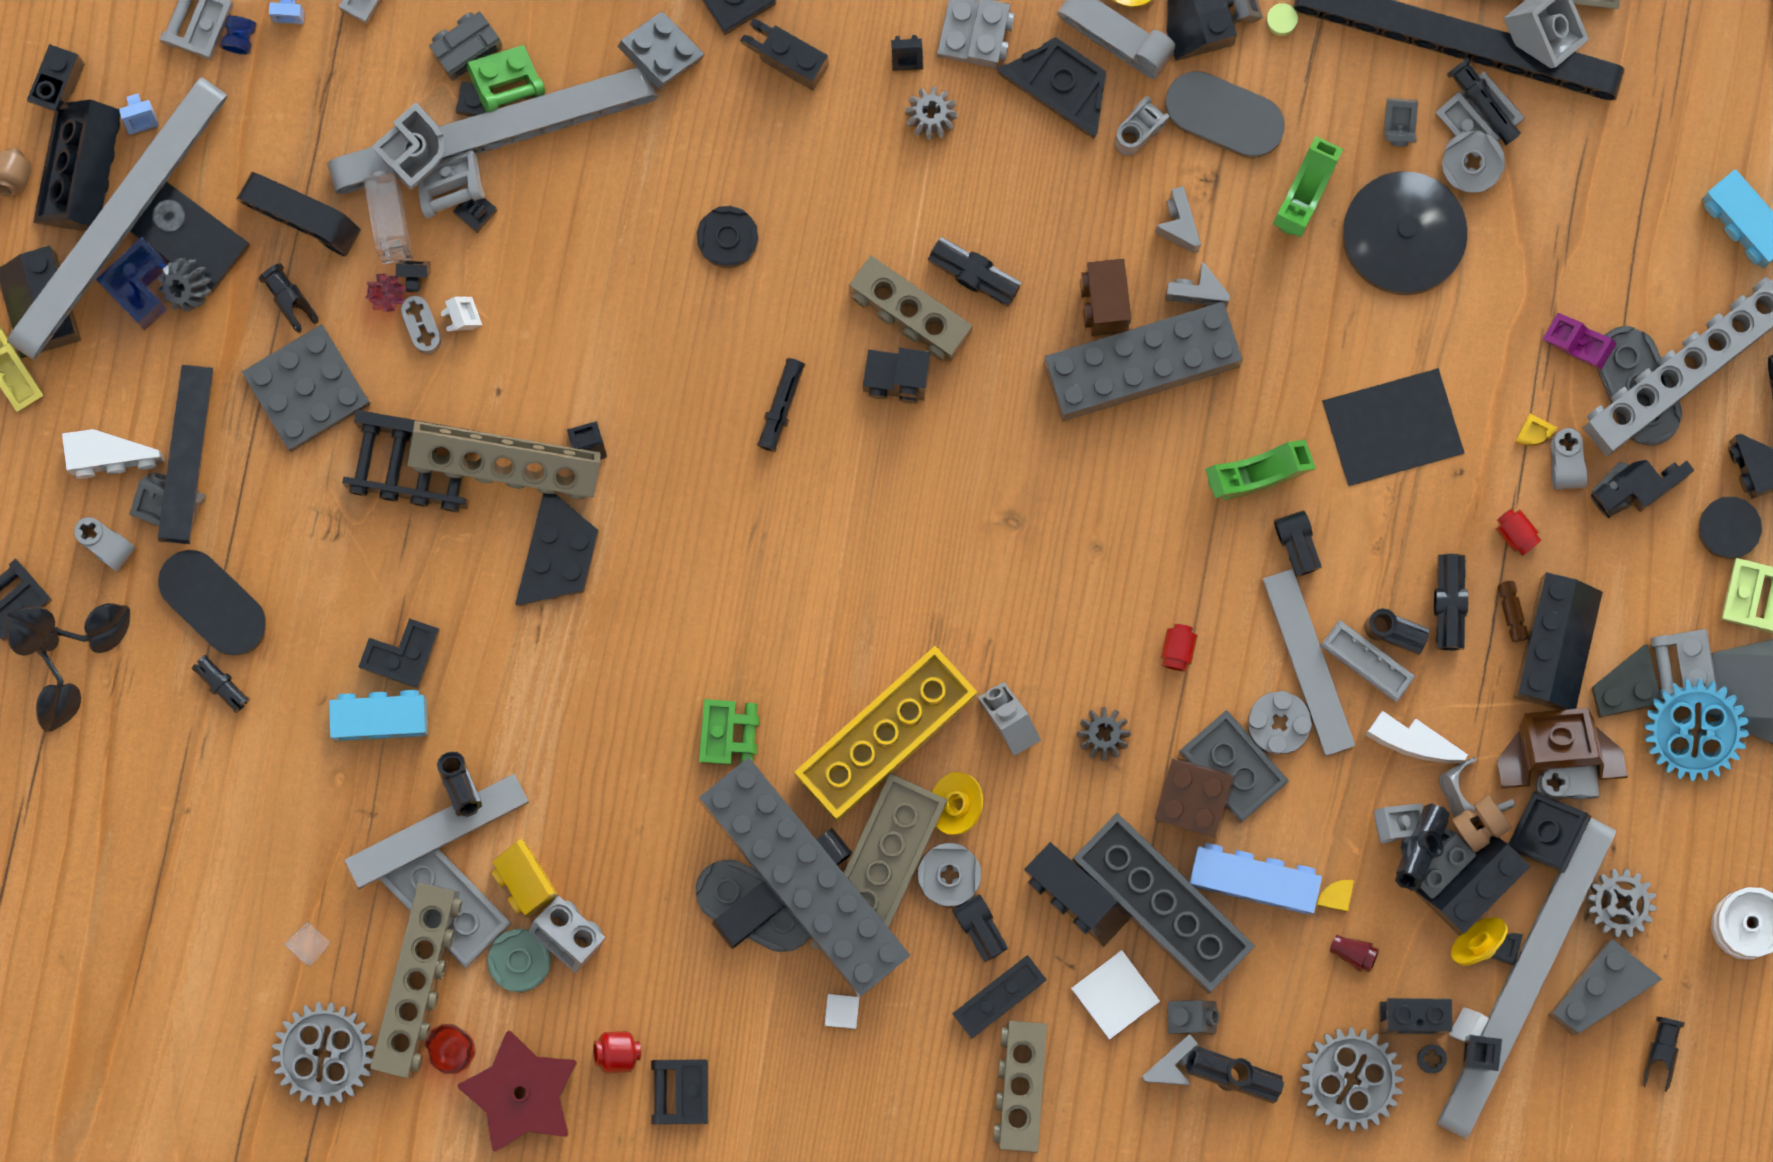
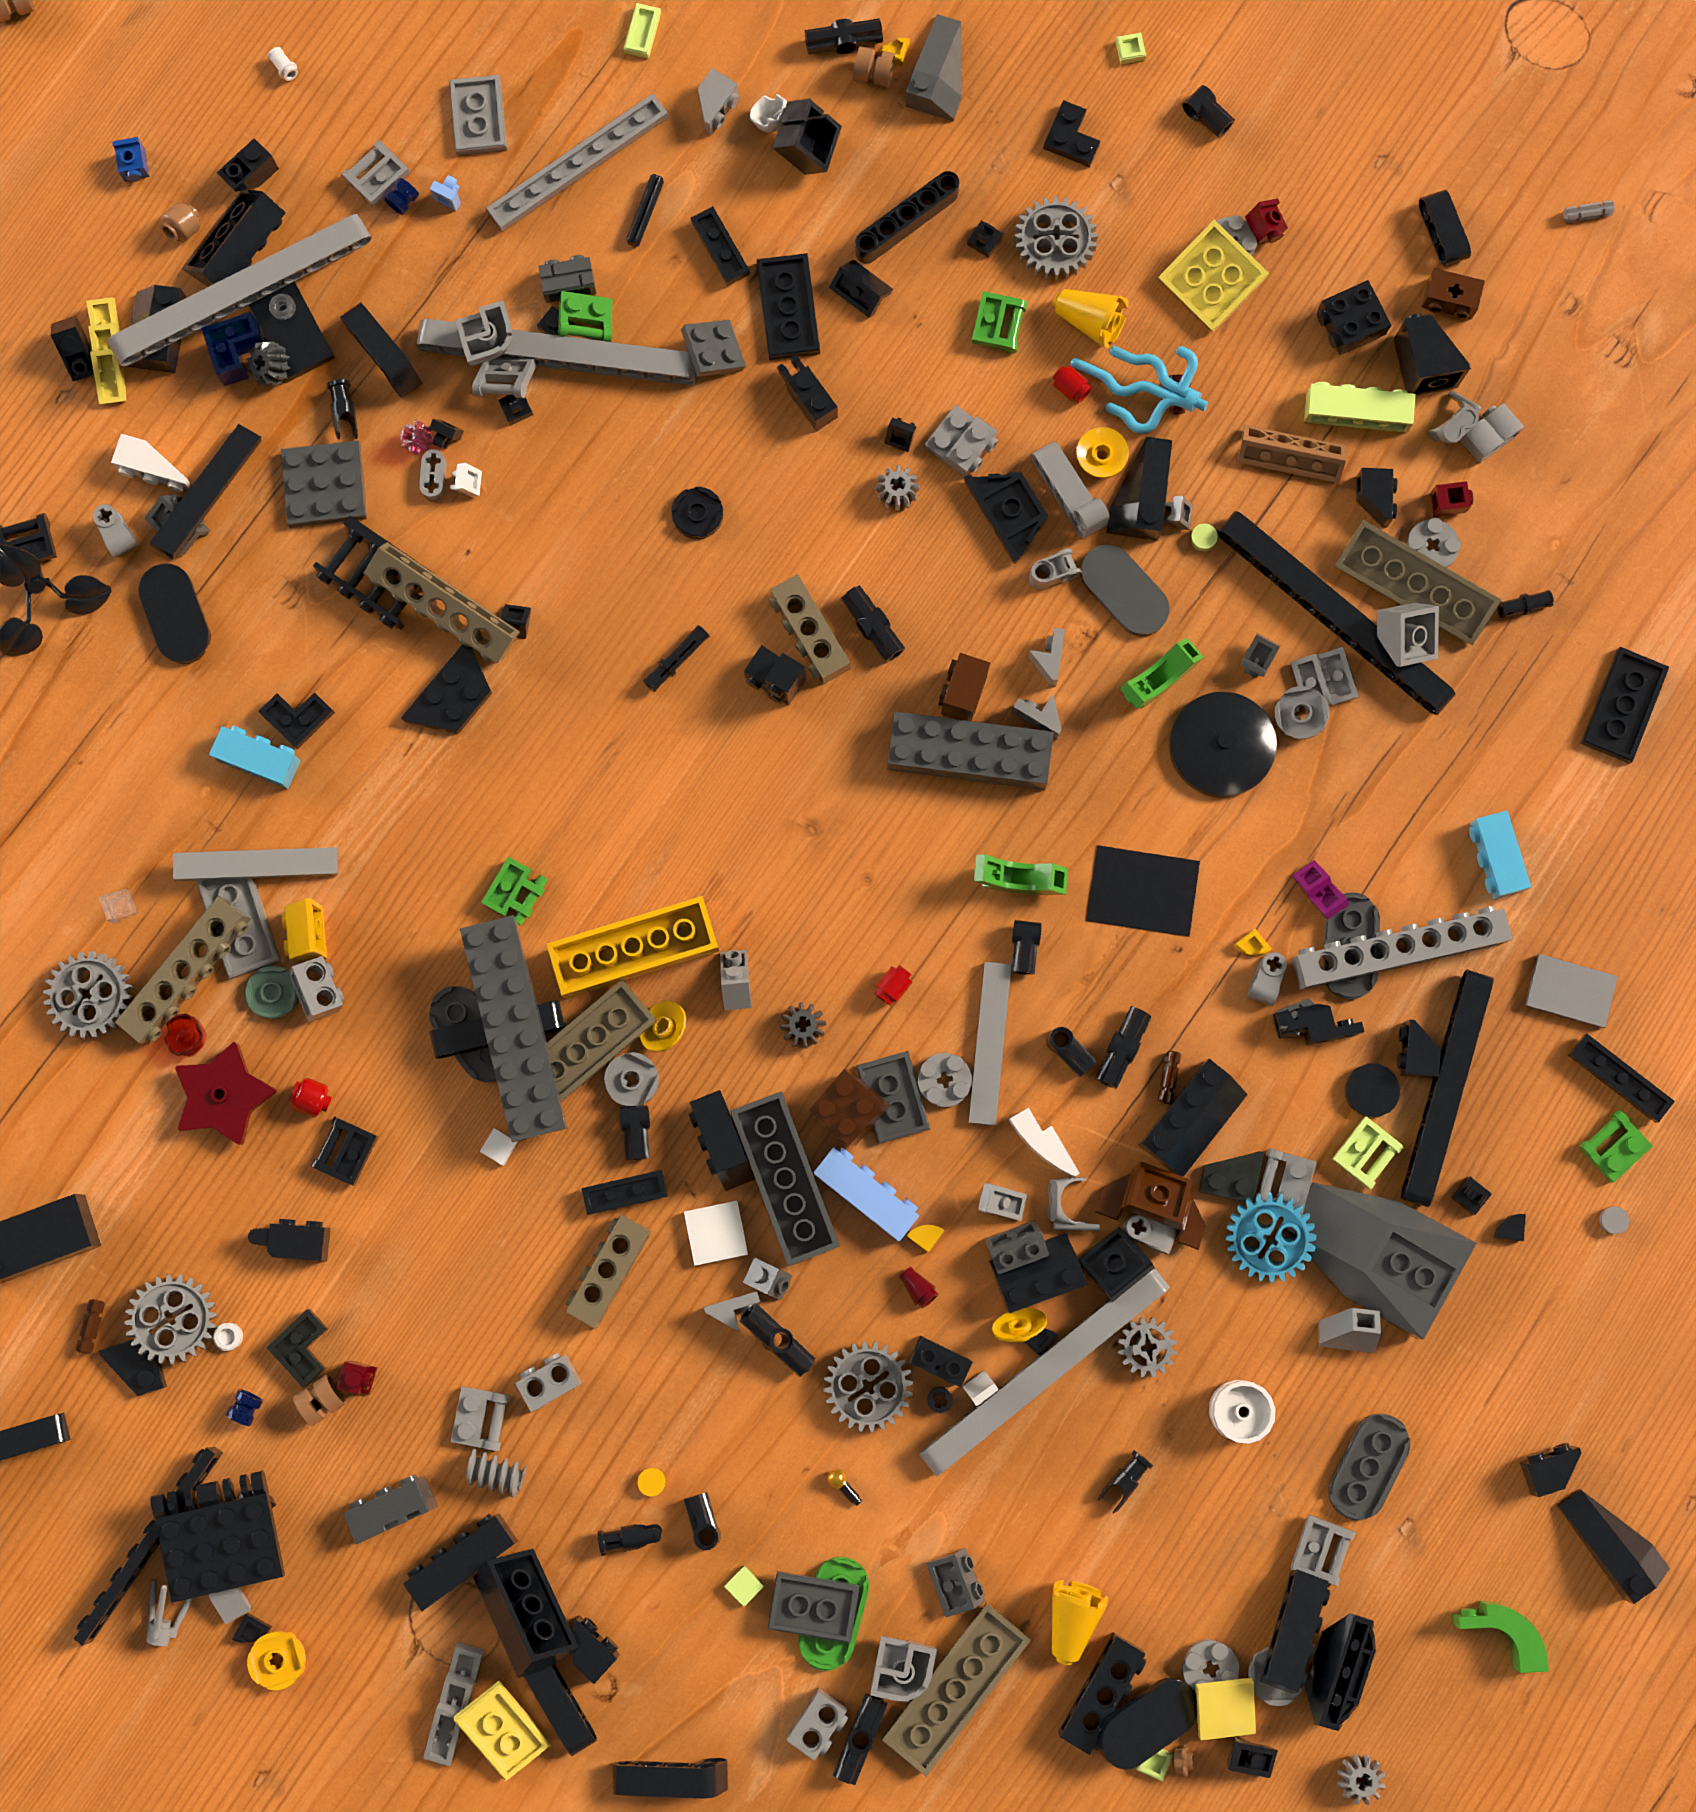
camera: 25 degrees right, 0 degrees up
(138, 115) = (296, 222): light blue tile -> none
(220, 683) = (150, 677): black pin -> none
(388, 217) = (444, 381): clear window -> none
(458, 784) = (288, 836): black piece -> none
(1367, 661) = (1036, 1063): light grey plate -> none
(1422, 847) = (1008, 1229): black piece -> none
(1475, 89) = (1329, 657): black pin -> none
(1481, 1053) = (977, 1416): black brick -> none
(1492, 818) = (1074, 1231): medium nougat wheel -> none
(1518, 531) = (1202, 1016): red brick -> none
(1602, 987) = (1100, 1407): dark grey wedge -> none

